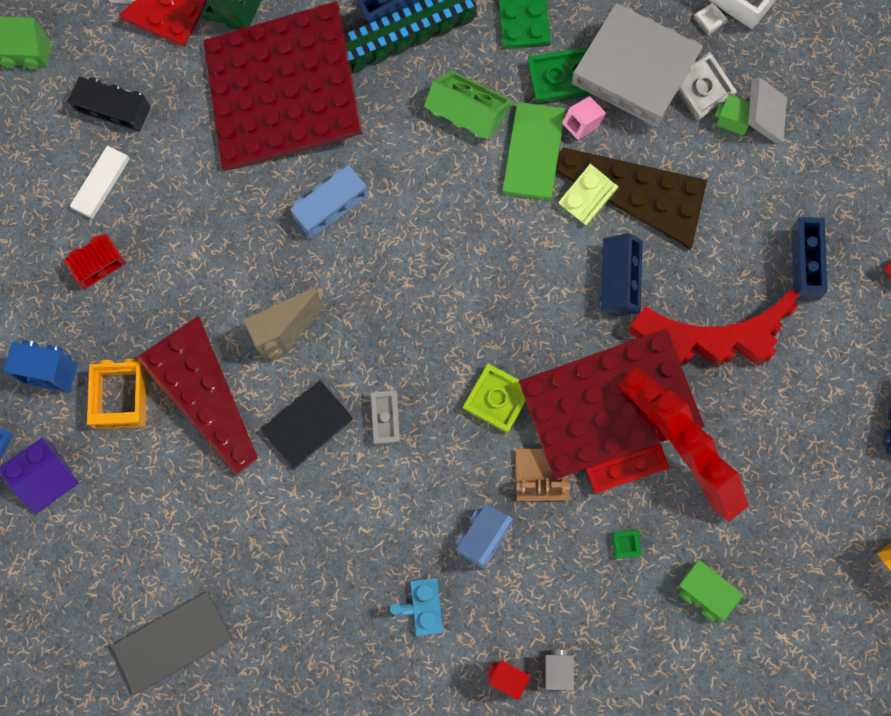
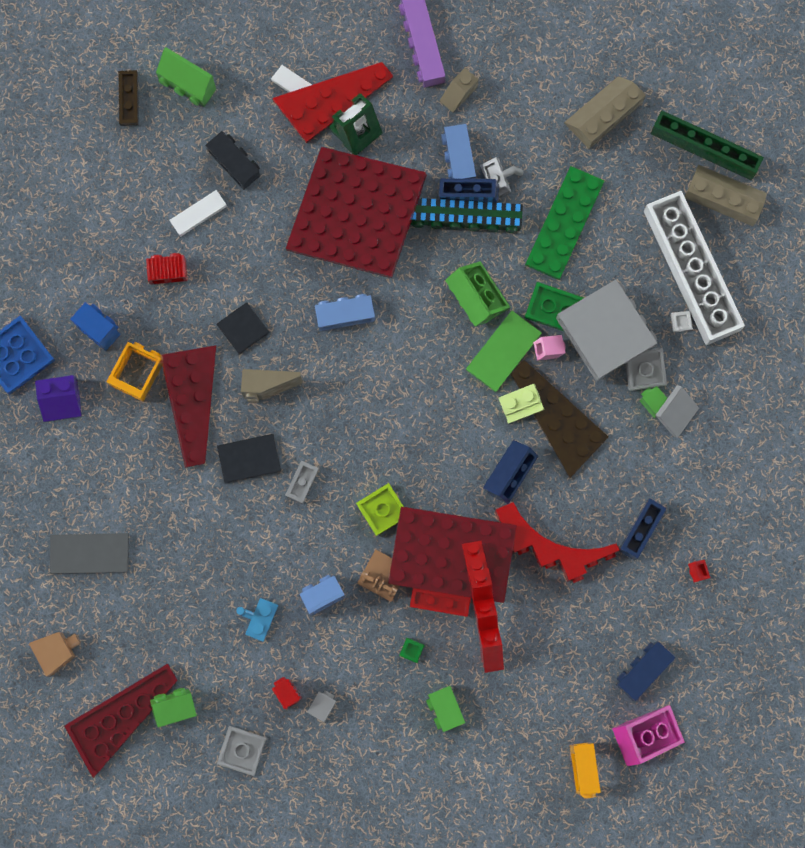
camera: 20 degrees right, 5 degrees up
(219, 281) = (242, 328): none -> black tile

